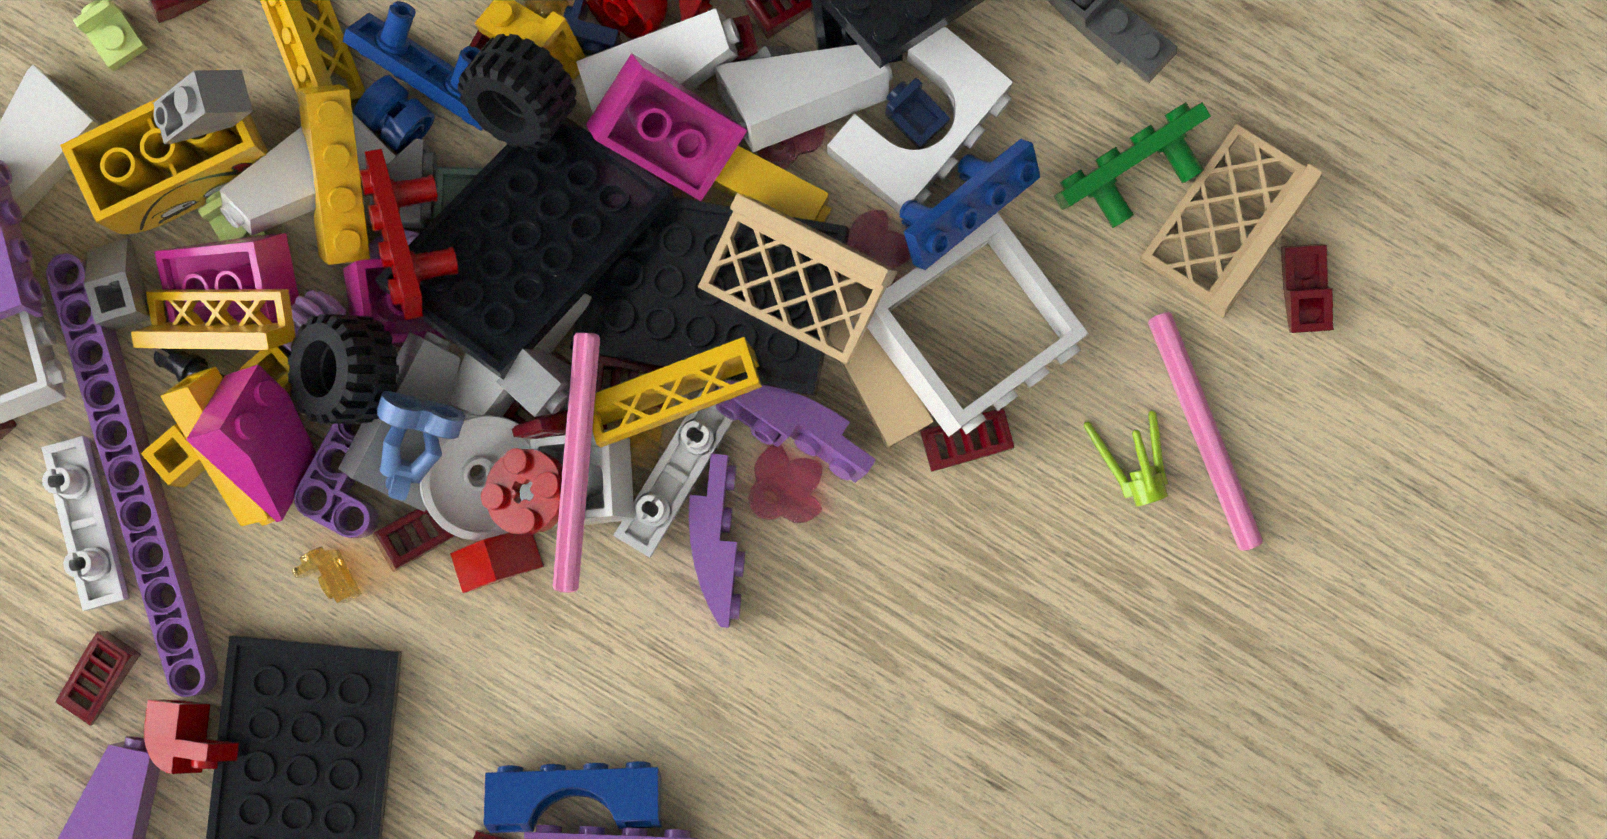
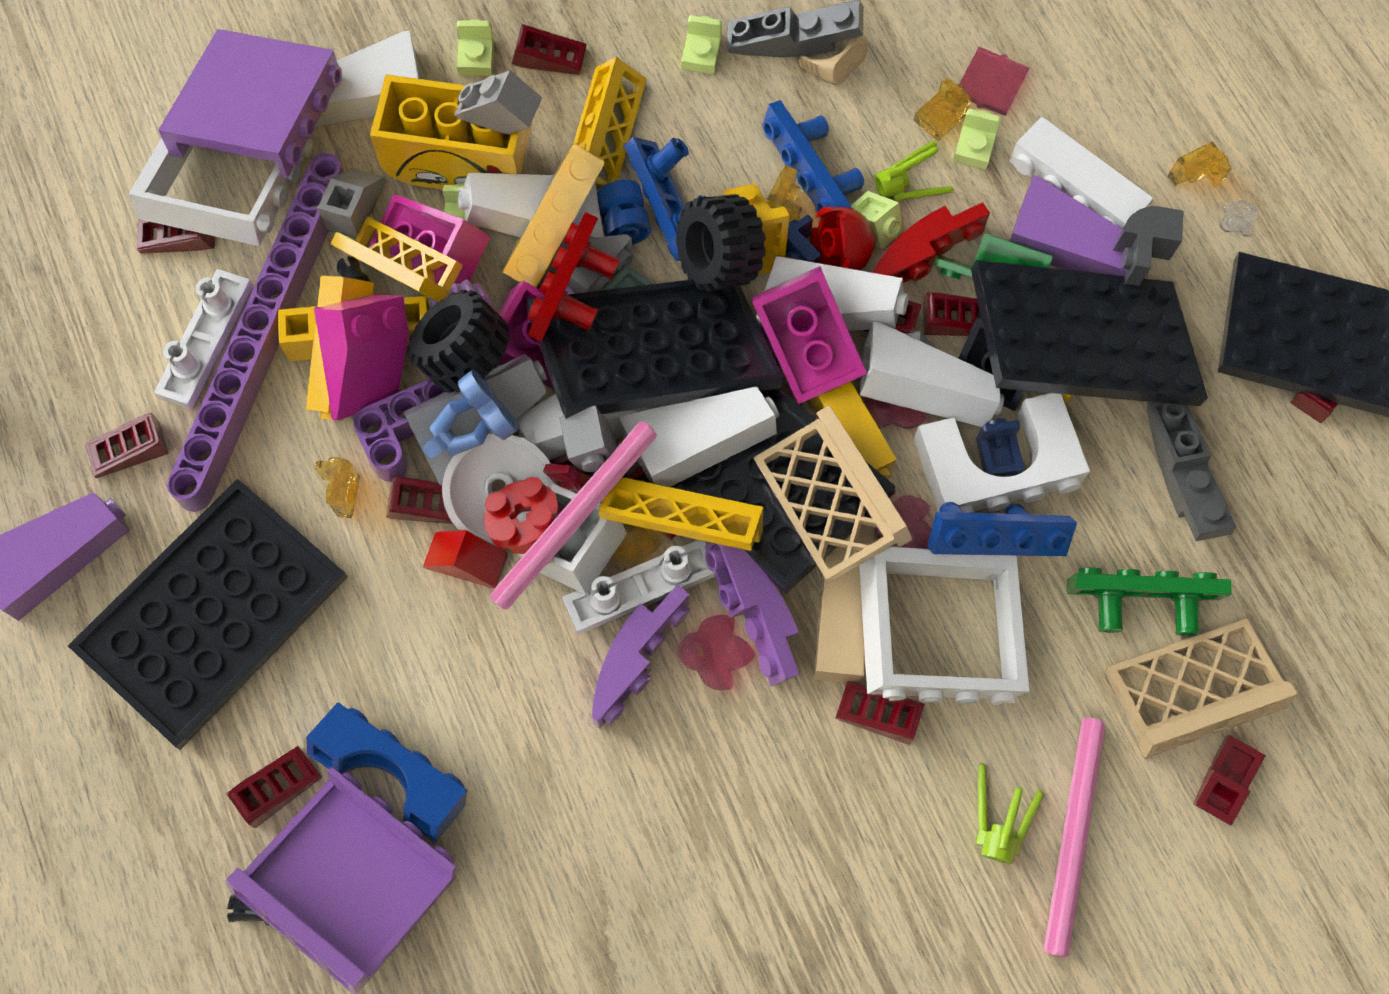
camera: 30 degrees right, 15 degrees down
(177, 737) = (146, 522): brick -> none
(632, 296) = (701, 432): none -> white slope

